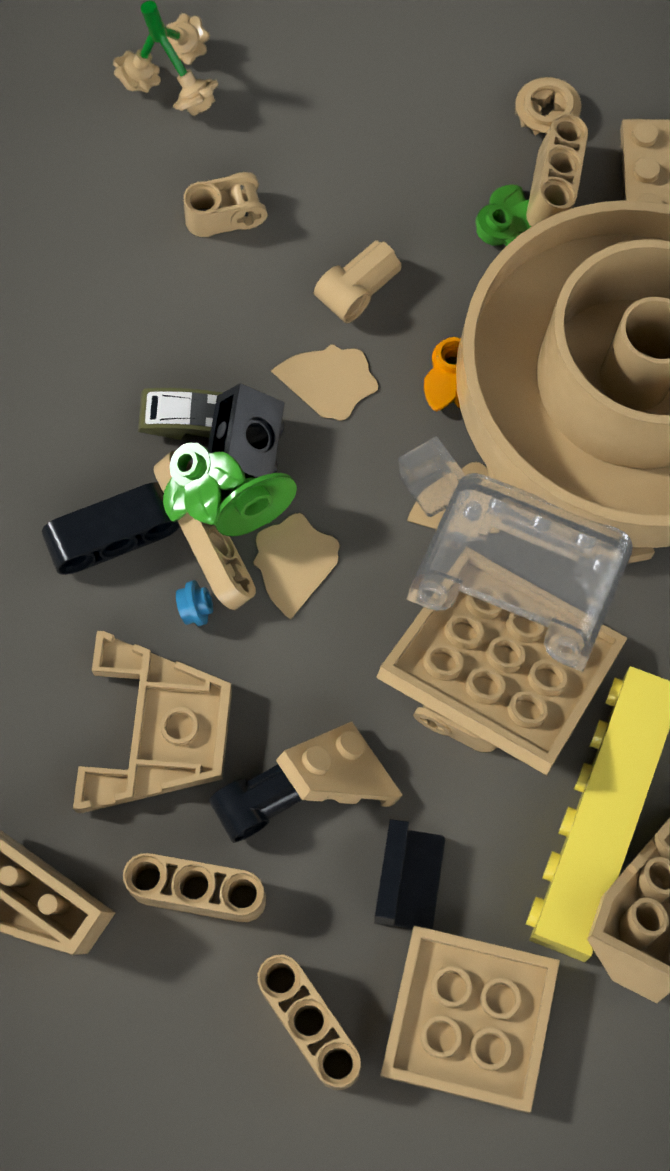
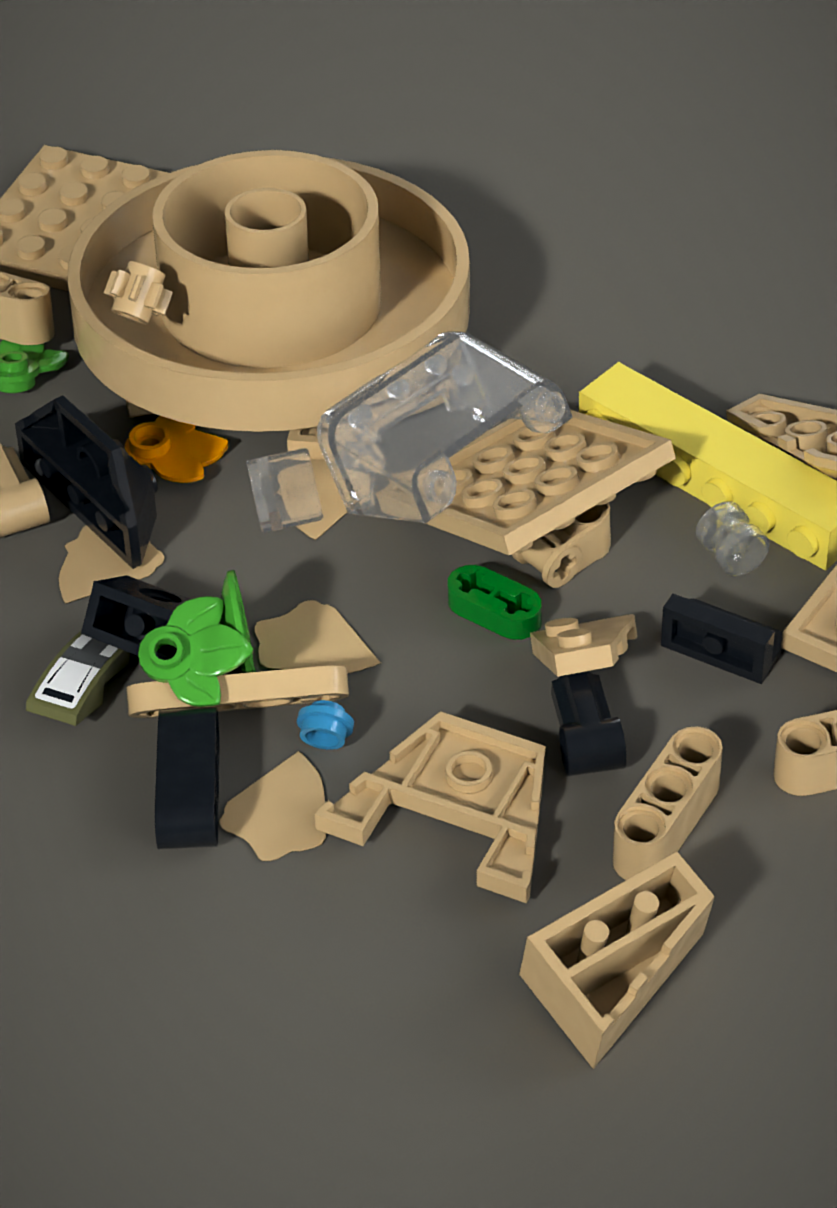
camera: 70 degrees left, 25 degrees down
(117, 603) = (278, 810): none -> tan sticker
(366, 682) = (494, 602): none -> green beam
(385, 342) = (91, 476): none -> black wedge
(517, 850) = (736, 543): none -> clear wheel
(525, 276) = (138, 292): none -> tan gear

